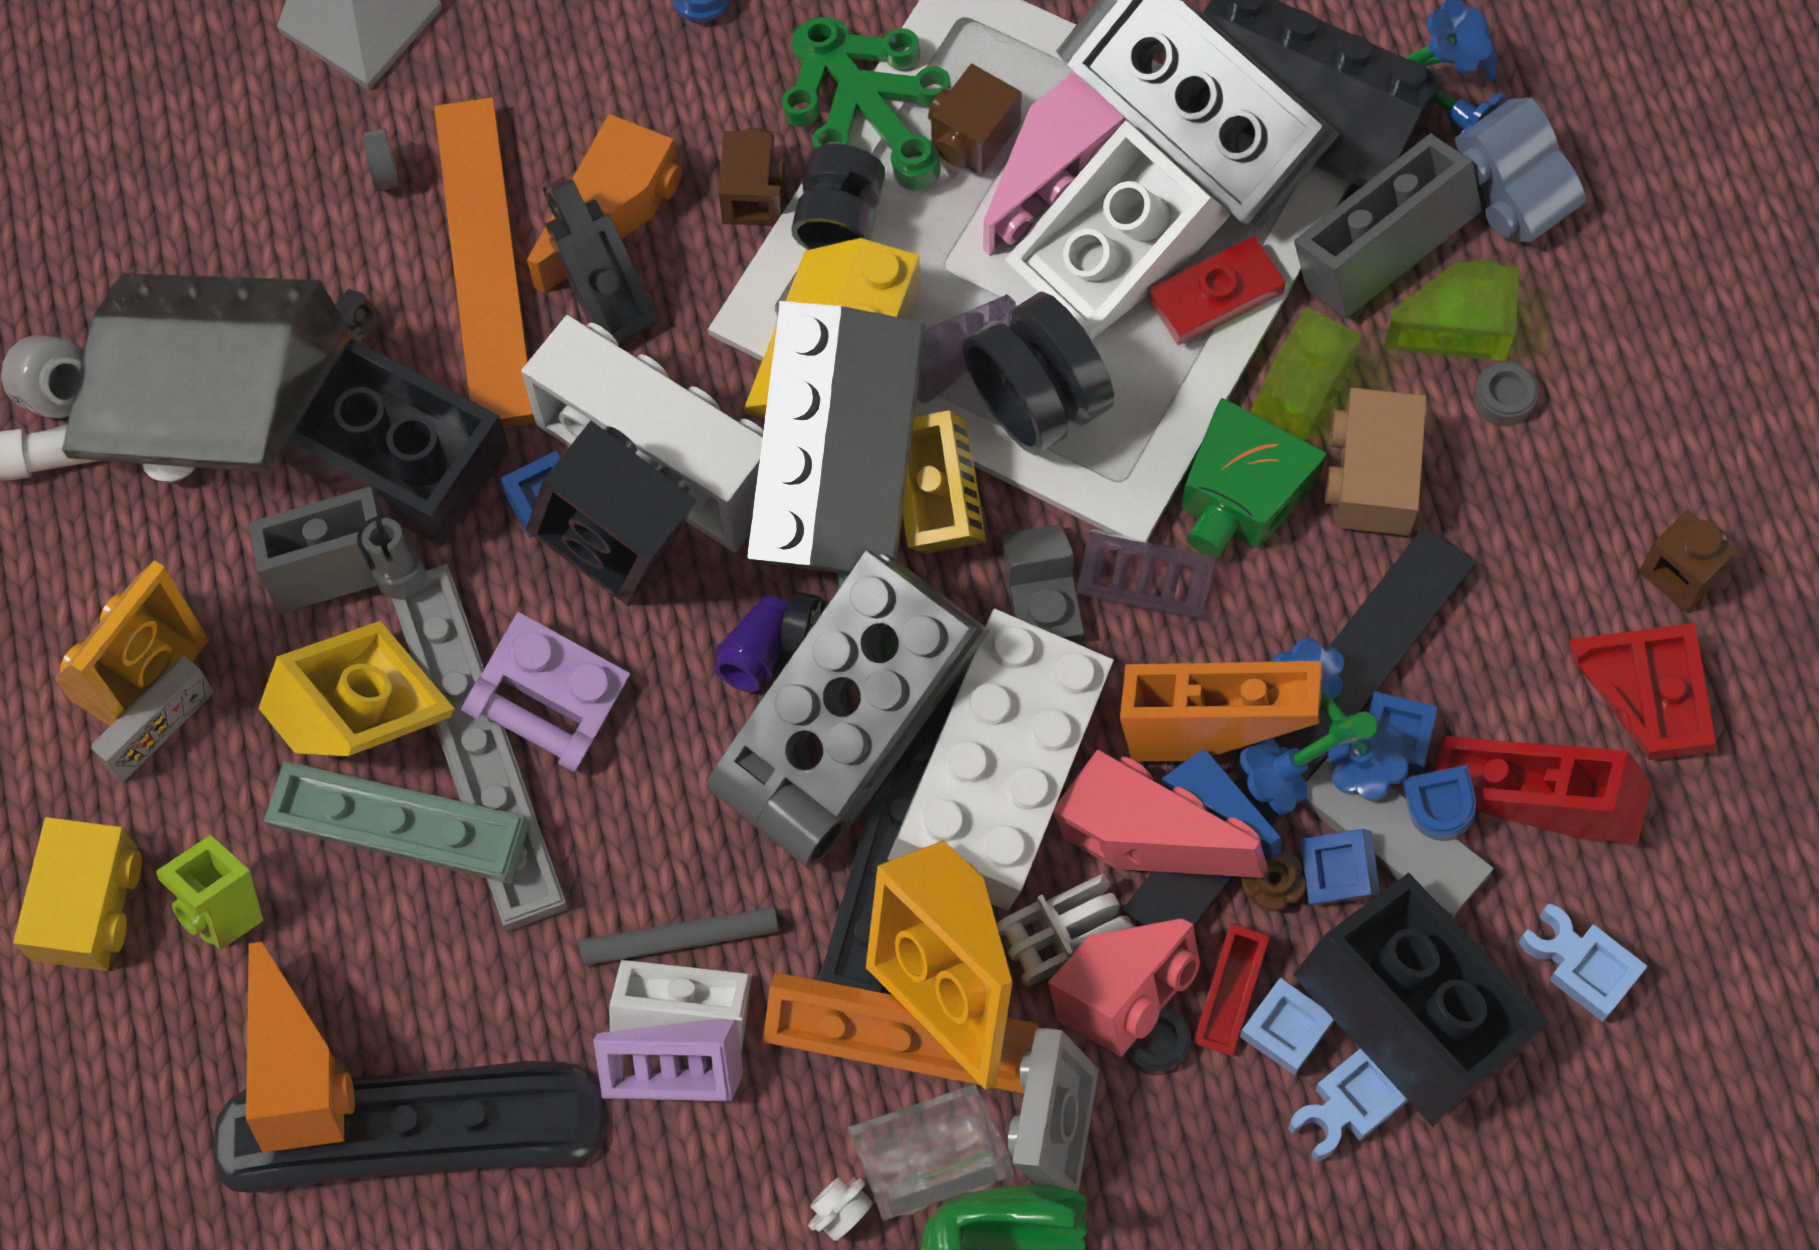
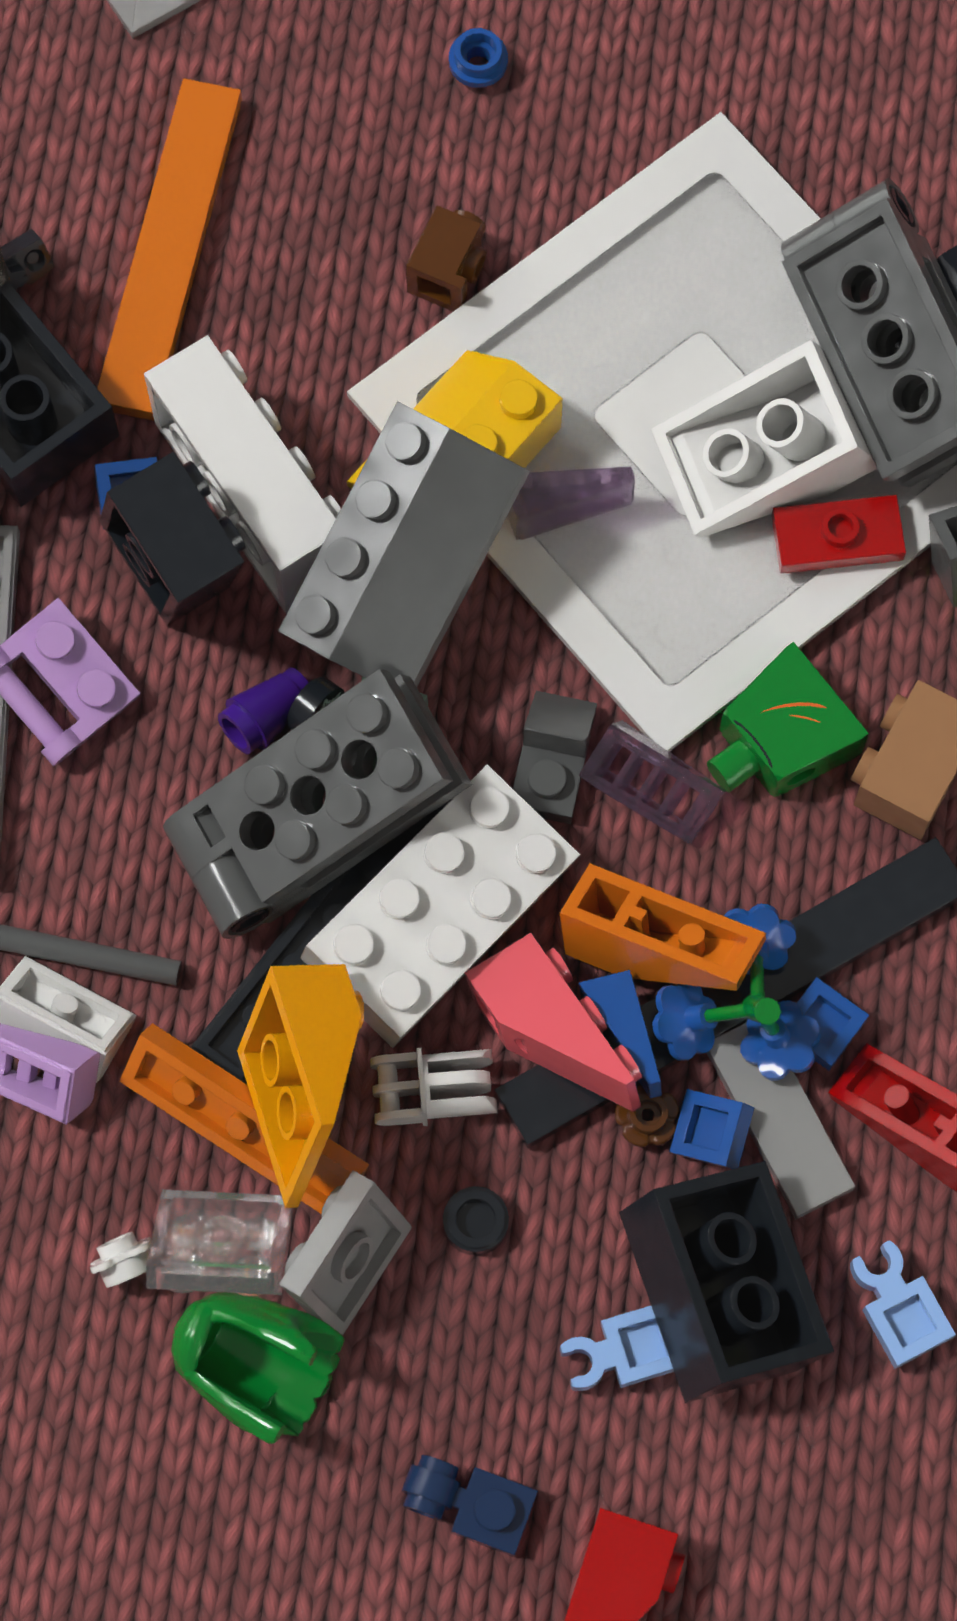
camera: 20 degrees right, 5 degrees up
(380, 159) = (112, 113): dark grey tile -> none
(596, 263) = (264, 294): black hinge -> none
(627, 175) = (305, 229): orange slope -> none
(838, 197) = (519, 307): black wheel -> none
(865, 91) = (588, 211): green plant -> none
(941, 486) = (494, 626): yellow brick -> none
(974, 119) = (678, 281): reddish brown brick -> none
(1038, 373) = (634, 552): black wheel -> none
(1049, 153) = (732, 341): bright pink slope -> none
(1123, 980) = (465, 1155): coral slope -> none
(1231, 989) = (565, 1200): red piece -> none
(1287, 1026) = (597, 1257): light blue plate -> none
(1307, 374) = (885, 652): clear neon green slope -> none
(1441, 802) = (832, 1106): blue tile -> none

